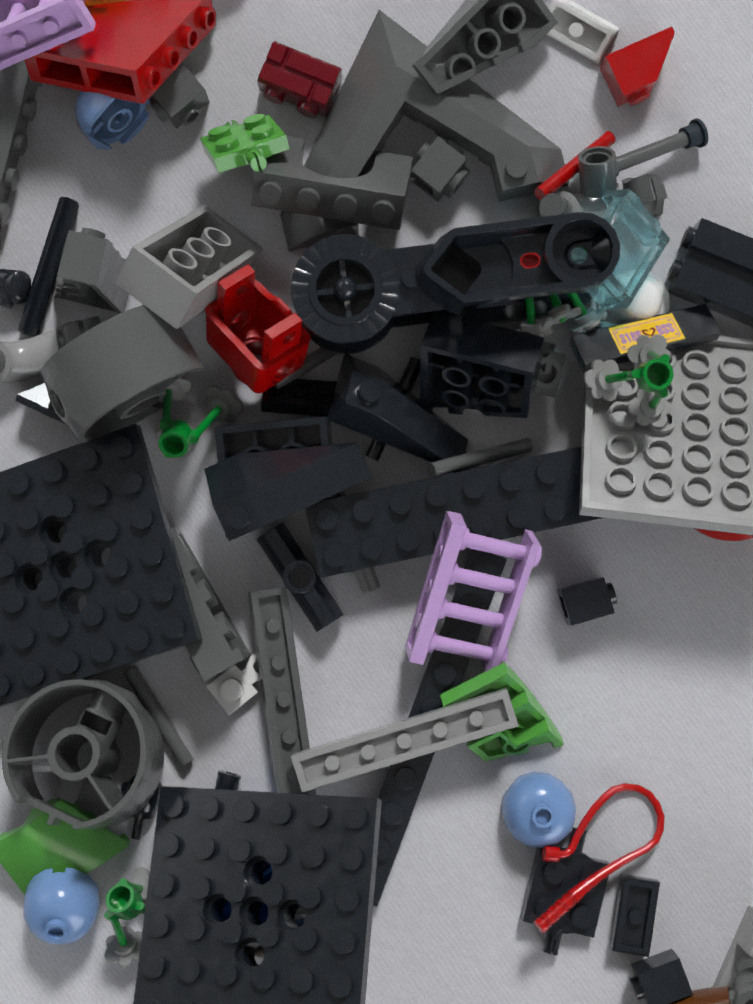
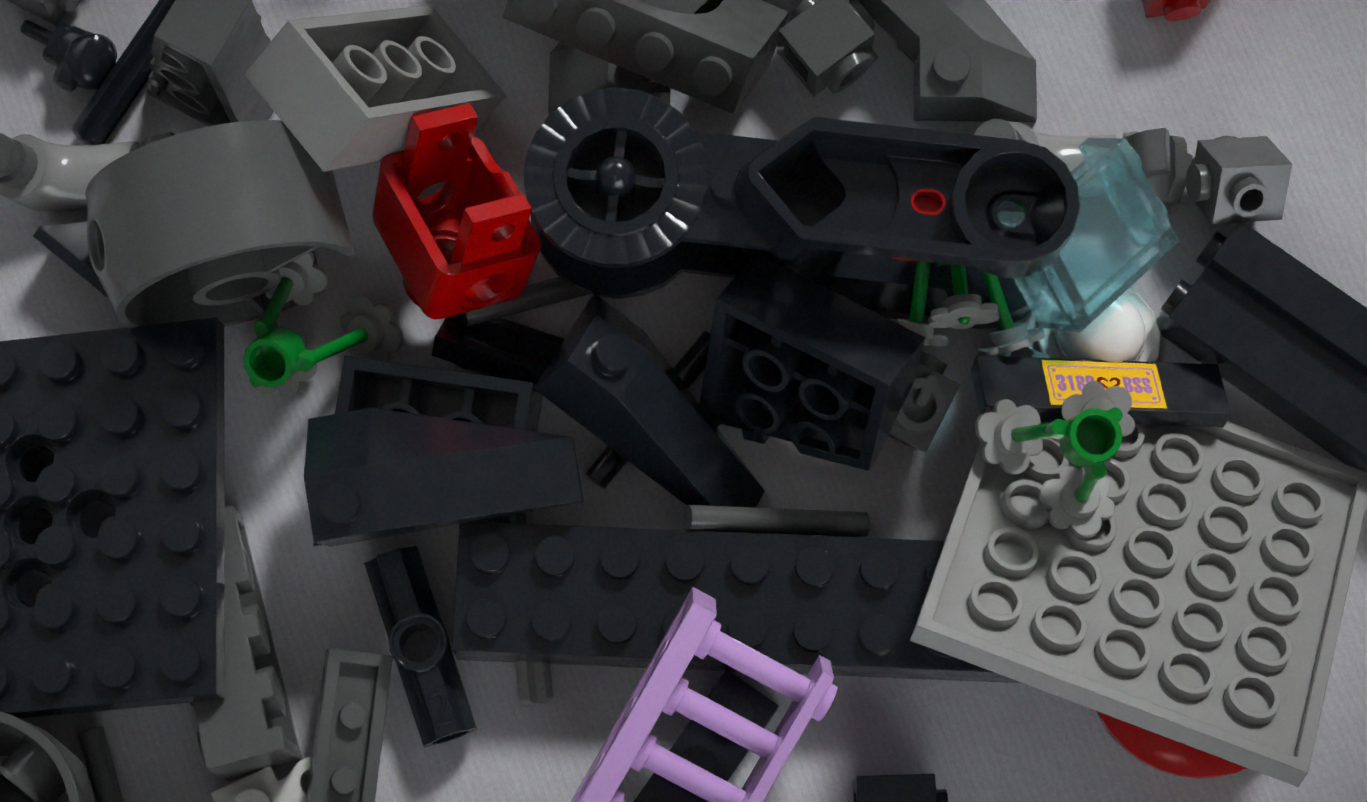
camera: 15 degrees right, 10 degrees down
(570, 169) = (1052, 88): red bar -> none
(601, 167) = (1089, 99): dark grey piece -> none
(695, 192) = (1239, 179): none -> dark grey brick

